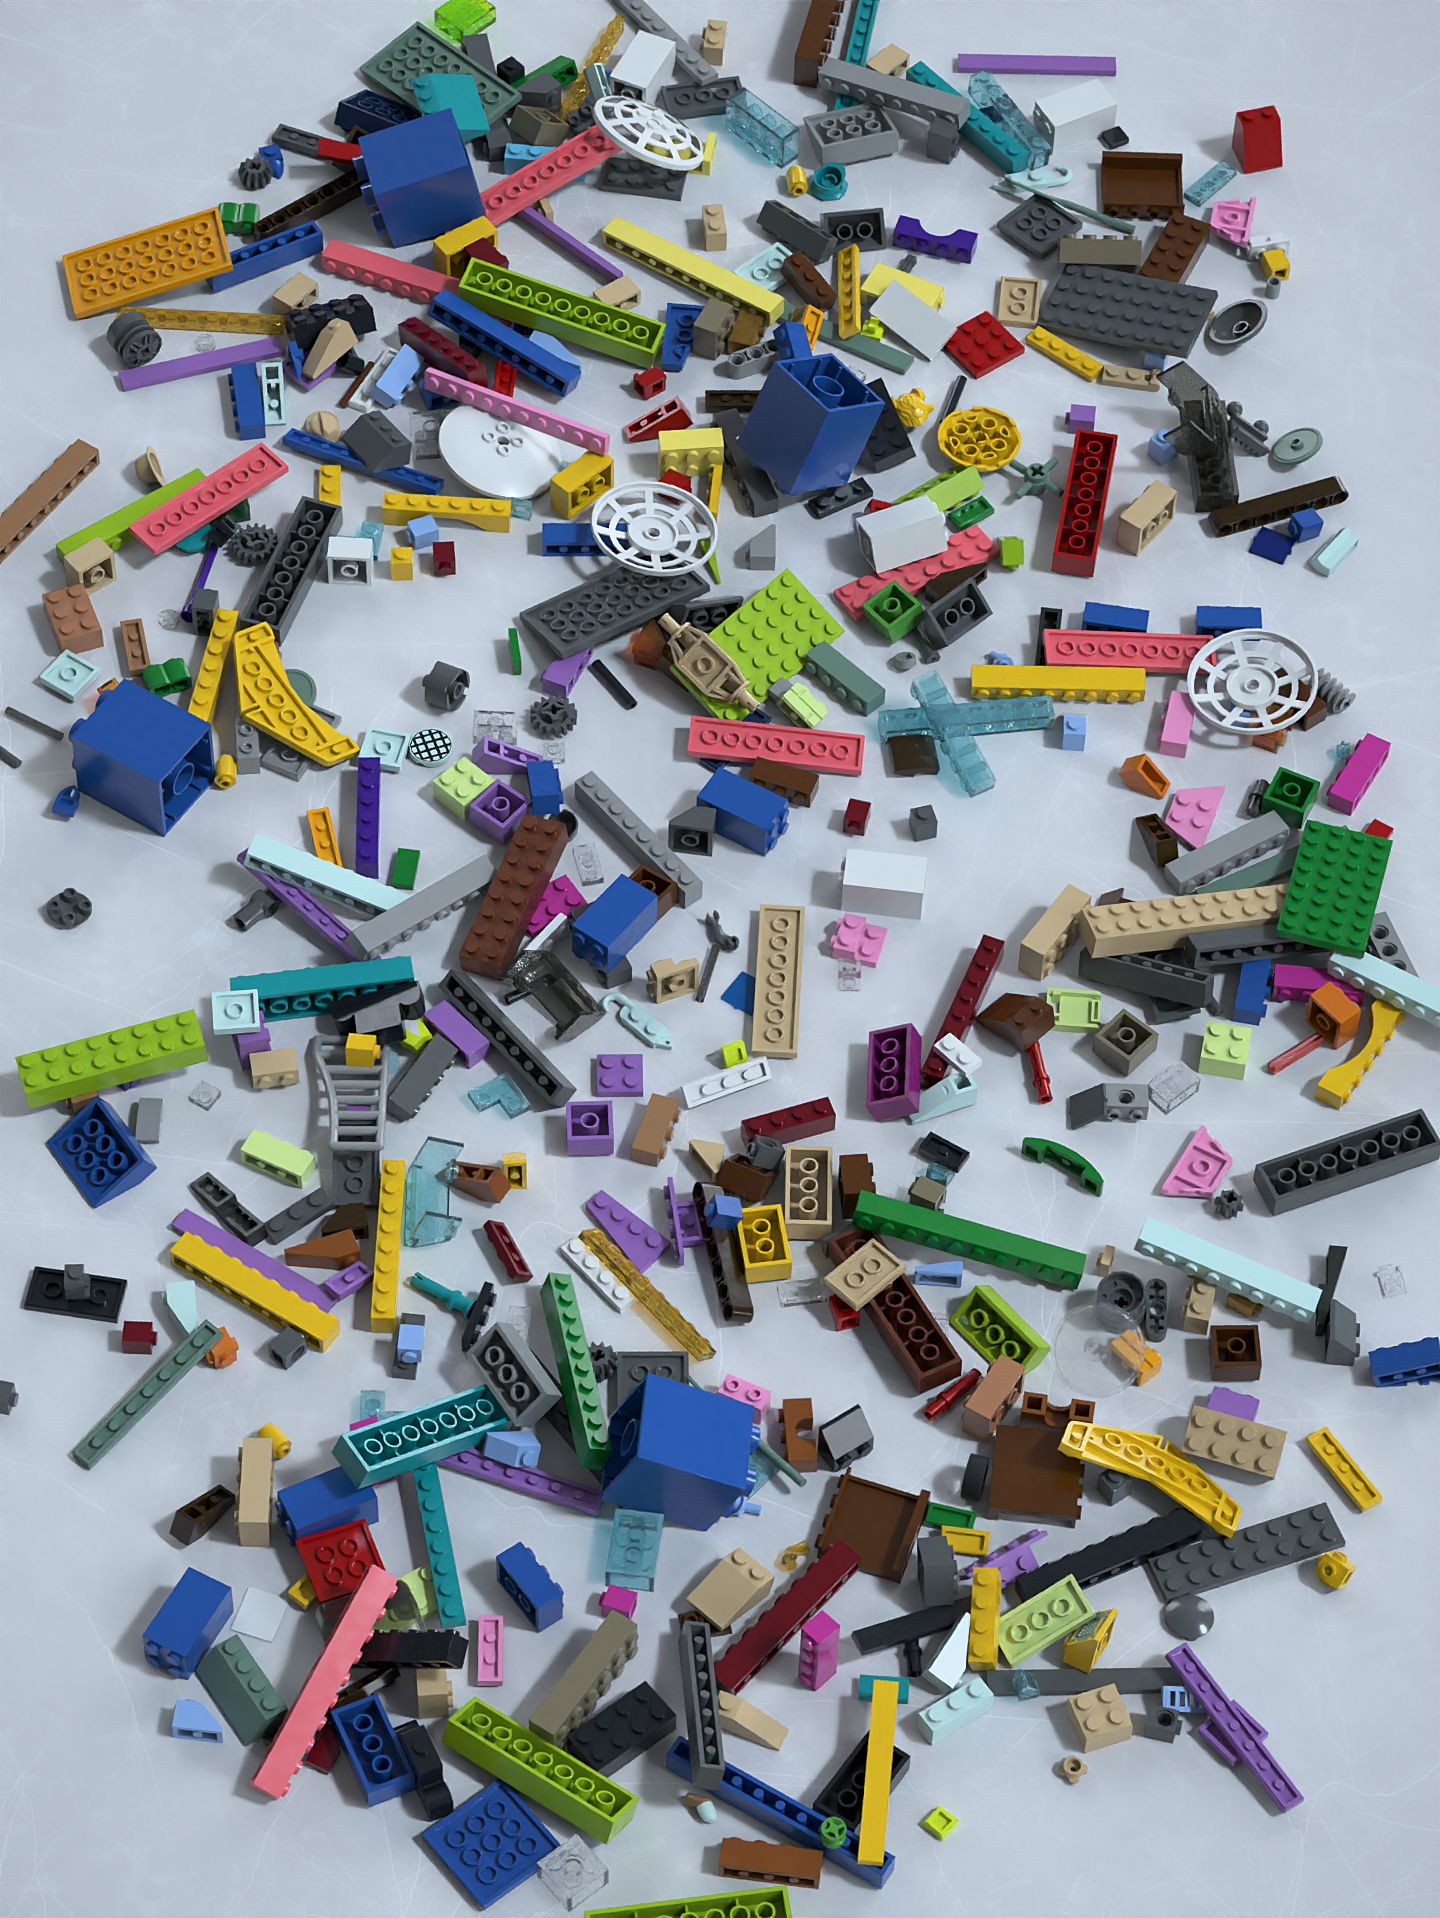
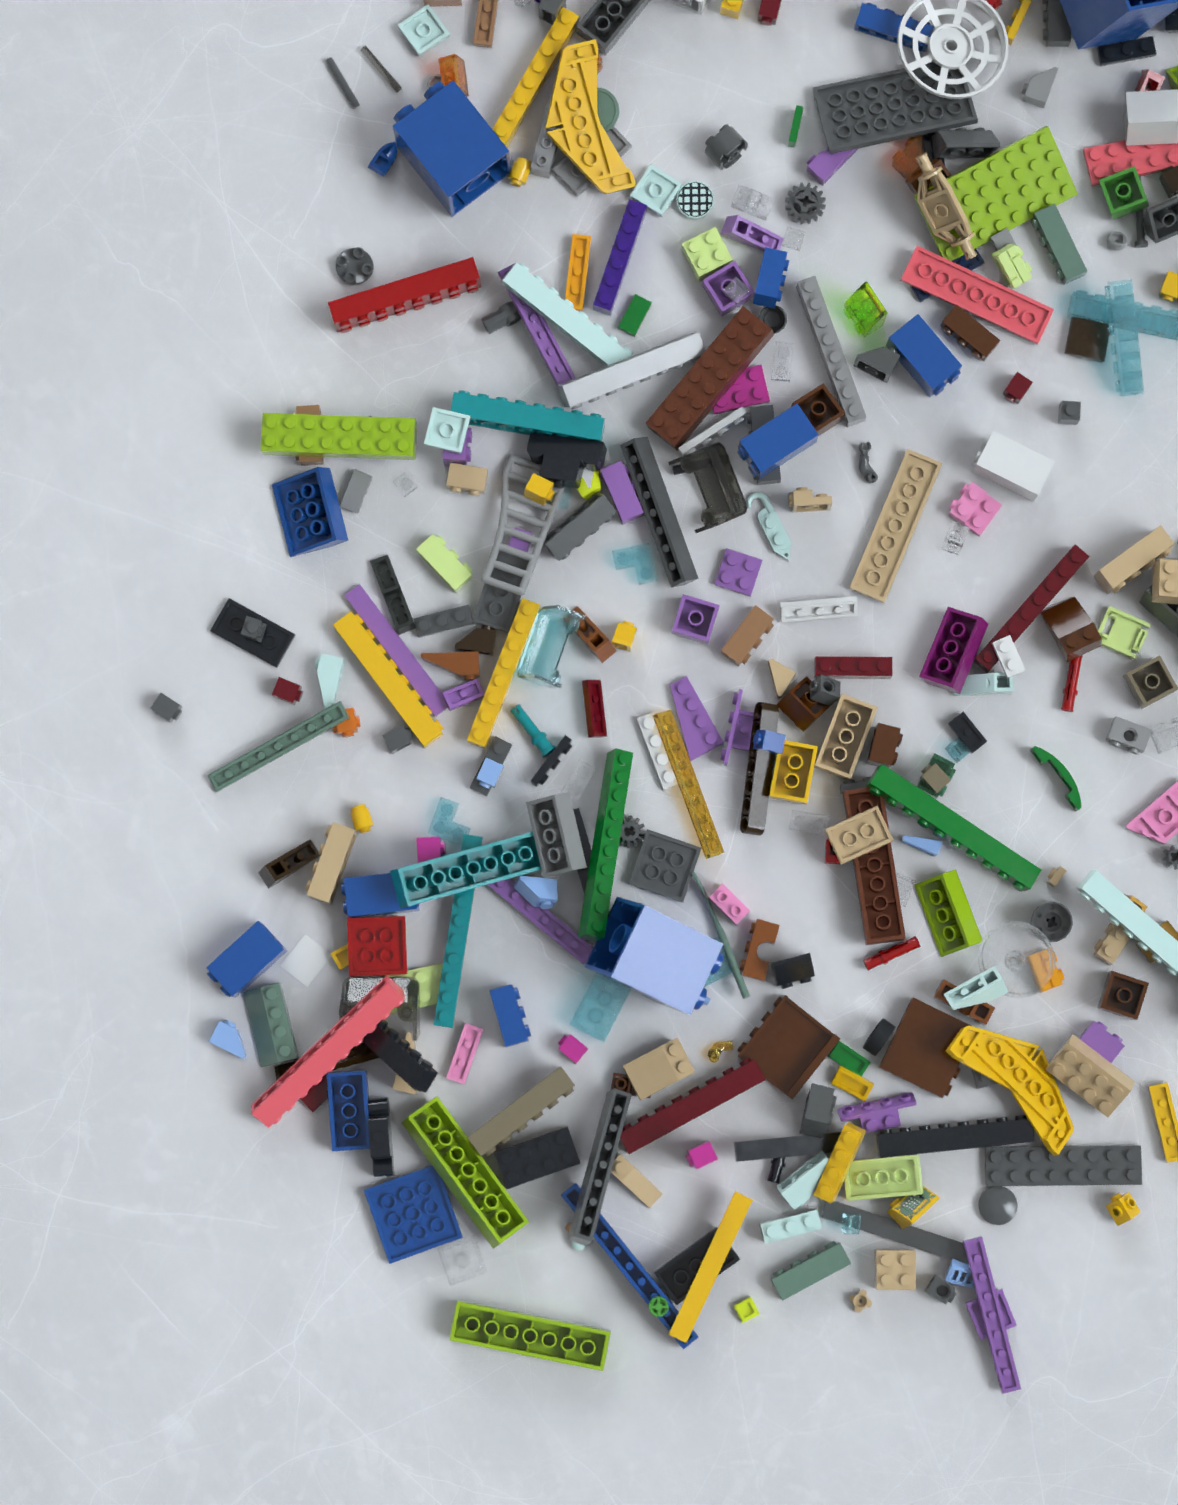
camera: 25 degrees right, 30 degrees up
(137, 913) = (405, 294): none -> red brick
(167, 677) = (501, 59): green brick -> none
(510, 801) = (736, 290): none -> clear plate
(614, 684) = (867, 184): black piece -> none
(661, 784) = (865, 310): none -> clear neon green slope
(707, 974) = (842, 498): clear smoke bar -> none
(712, 561) = (992, 68): lime piece -> none
(733, 1053) = (834, 585): neon yellow tile -> none
(741, 993) = (863, 525): clear blue piece -> none
(770, 1863) = (609, 1301): dark orange brick -> none
(867, 1682) = (745, 1185): teal tile -> none
(993, 1398) = (918, 973): nougat brick -> none
(999, 1752) = (806, 1273): none -> sand green brick
(1072, 1382) = (977, 990): none -> light aqua slope
(1088, 1106) = (1097, 731): dark grey piece -> none
(1161, 1318) = (1079, 916): dark grey beam -> none

